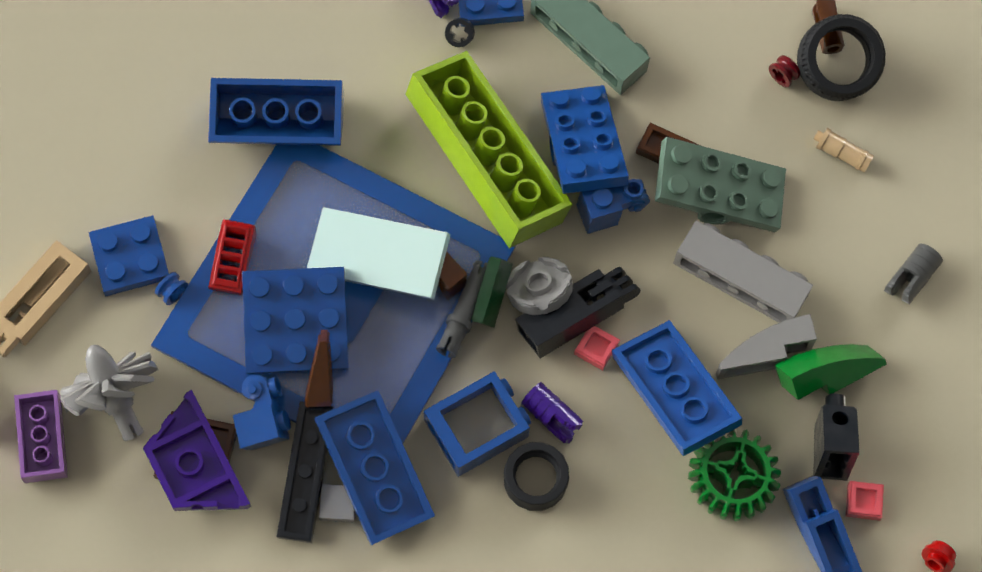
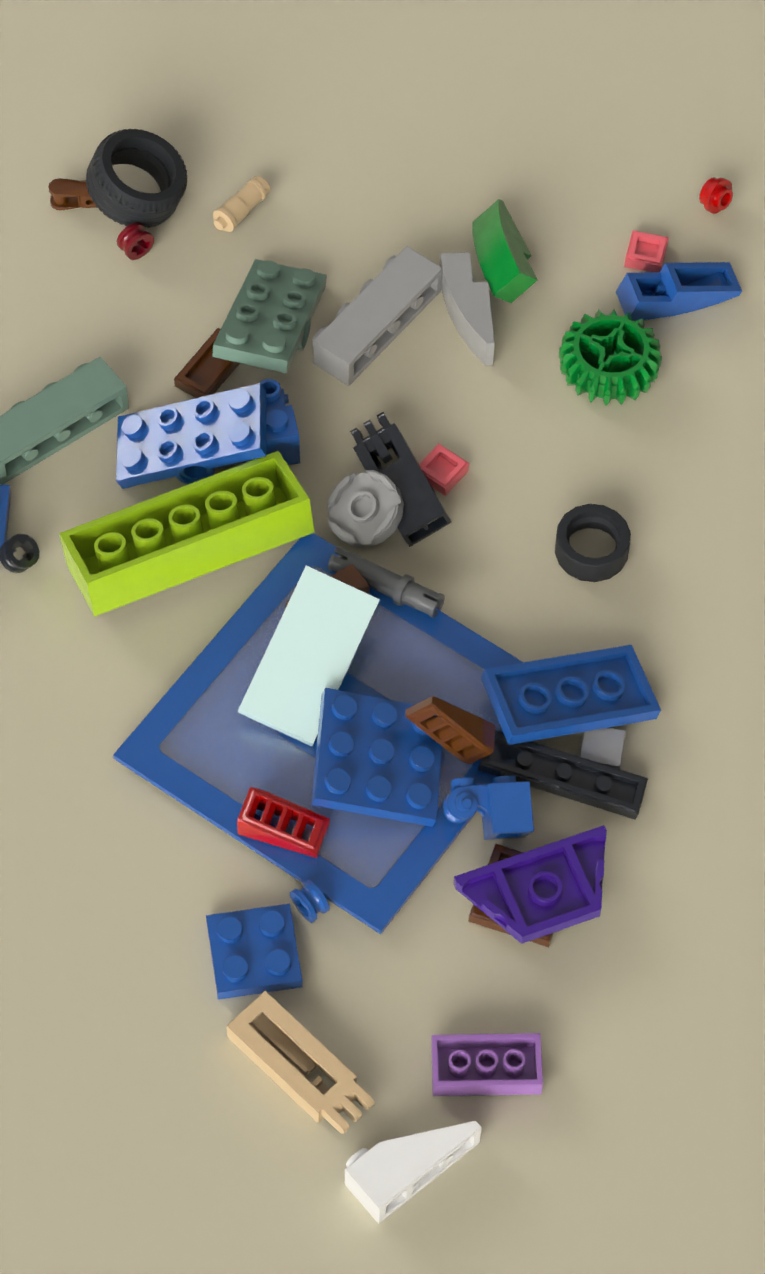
camera: 80 degrees left, 10 degrees down
(108, 387) = (441, 972): light grey piece -> none
(276, 111) = (99, 755): blue slope -> none
(448, 442) = (536, 624): blue window -> none
(492, 291) = (368, 550): dark green tile -> none
(552, 412) = (516, 519): dark purple hinge -> none
(677, 388) = (508, 389): blue plate -> none
(835, 439) = (583, 256): black torso -> none
(915, 270) = (396, 162): dark grey hinge -> none

